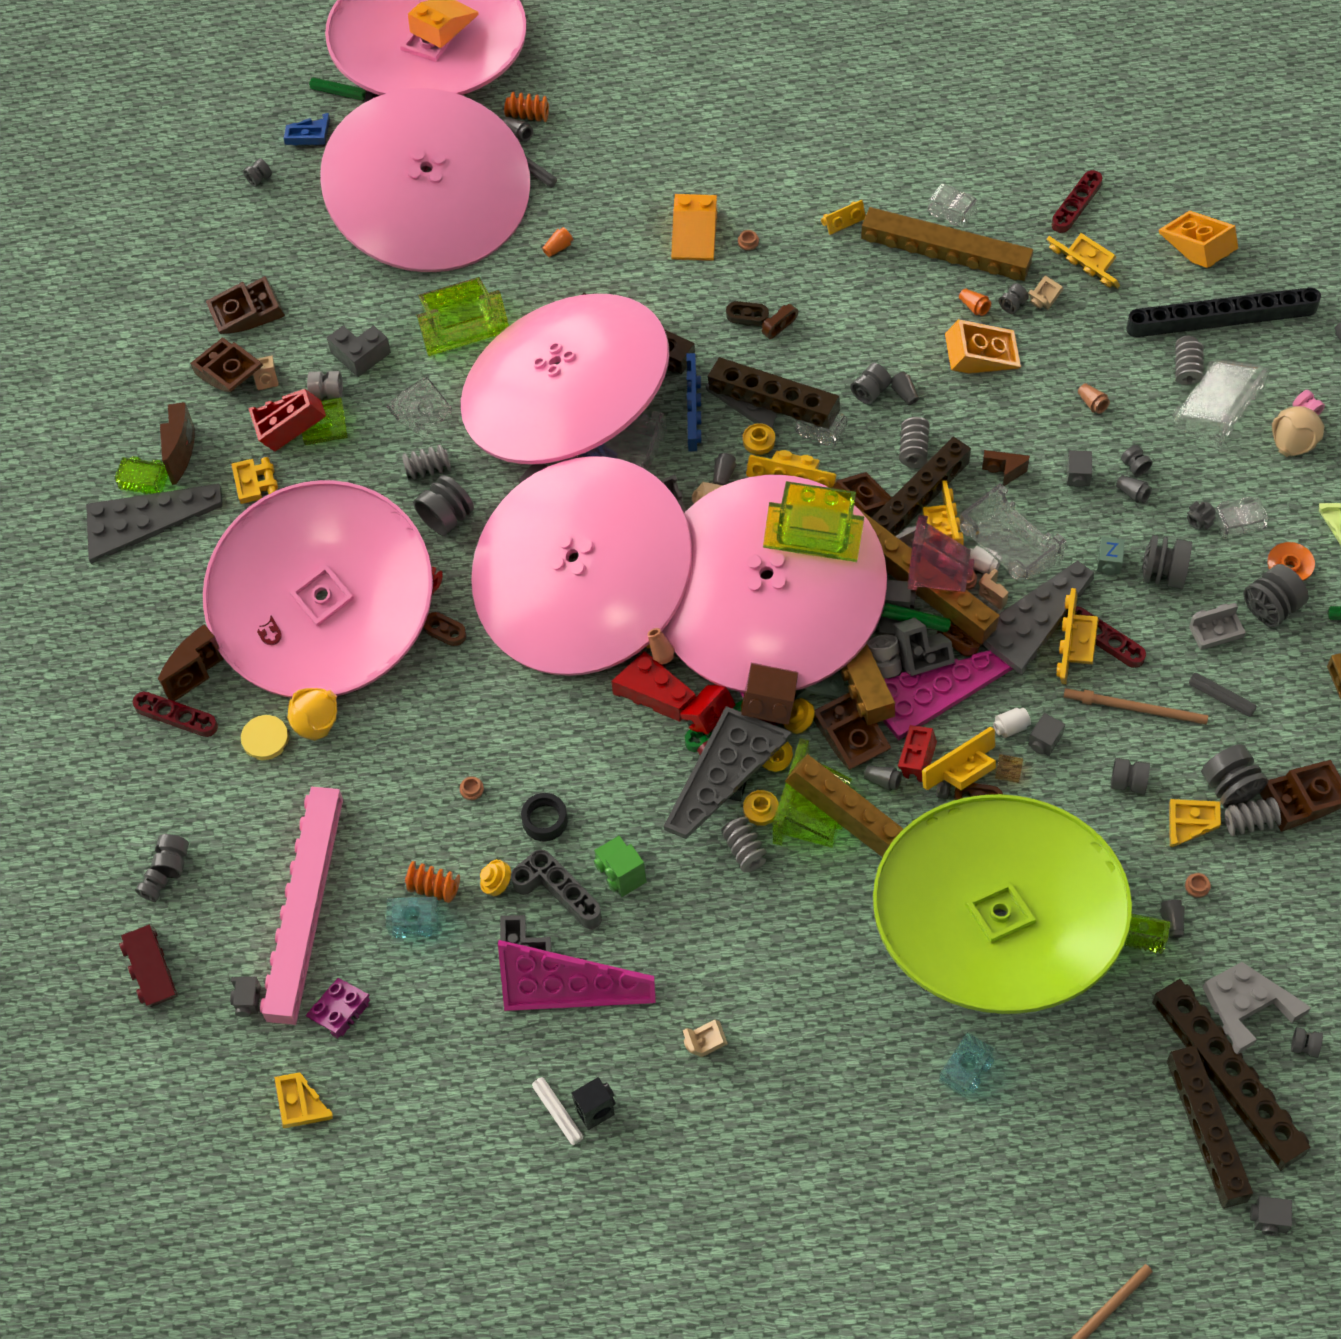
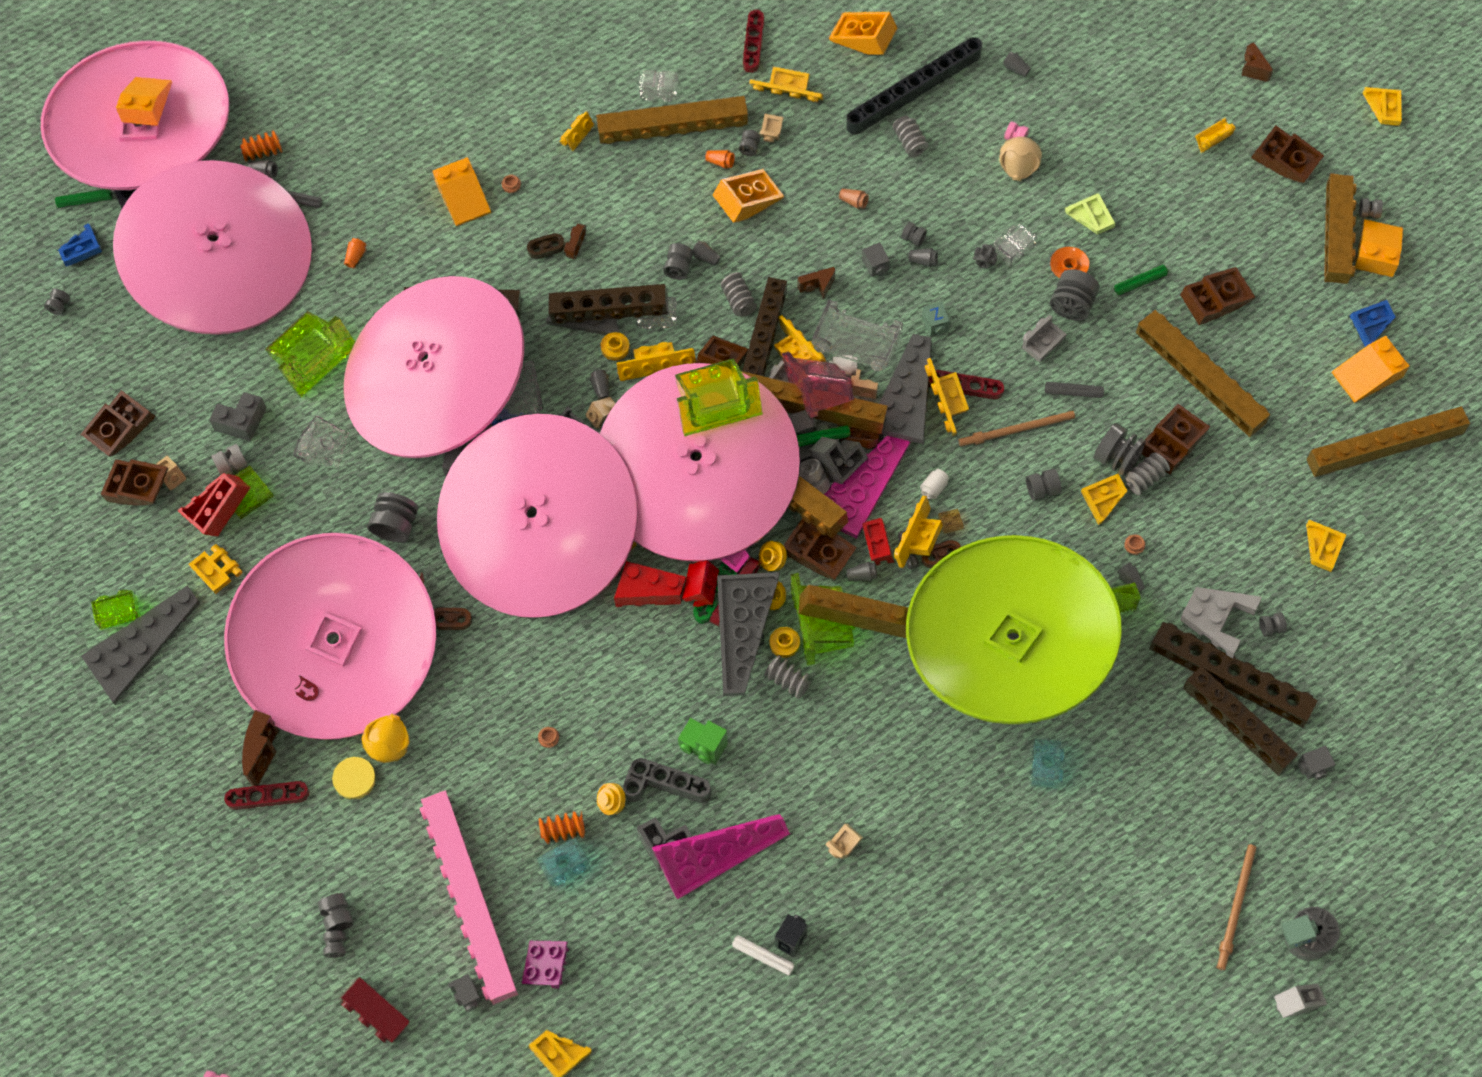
camera: 30 degrees left, 5 degrees up
(177, 441) = (131, 565): reddish brown slope -> none
(426, 462) = (354, 487): light grey piece -> none
(551, 832) = (617, 716): black tyre -> none
(660, 647) = (640, 553): nougat cone -> none
(693, 402) = (545, 339): blue wing -> none
(769, 693) = (746, 550): reddish brown slope -> none
(1046, 734) = (965, 482): dark grey brick -> none
(1167, 561) = (986, 304): dark grey wheel -> none
(1220, 400) = (951, 158): clear windscreen -> none

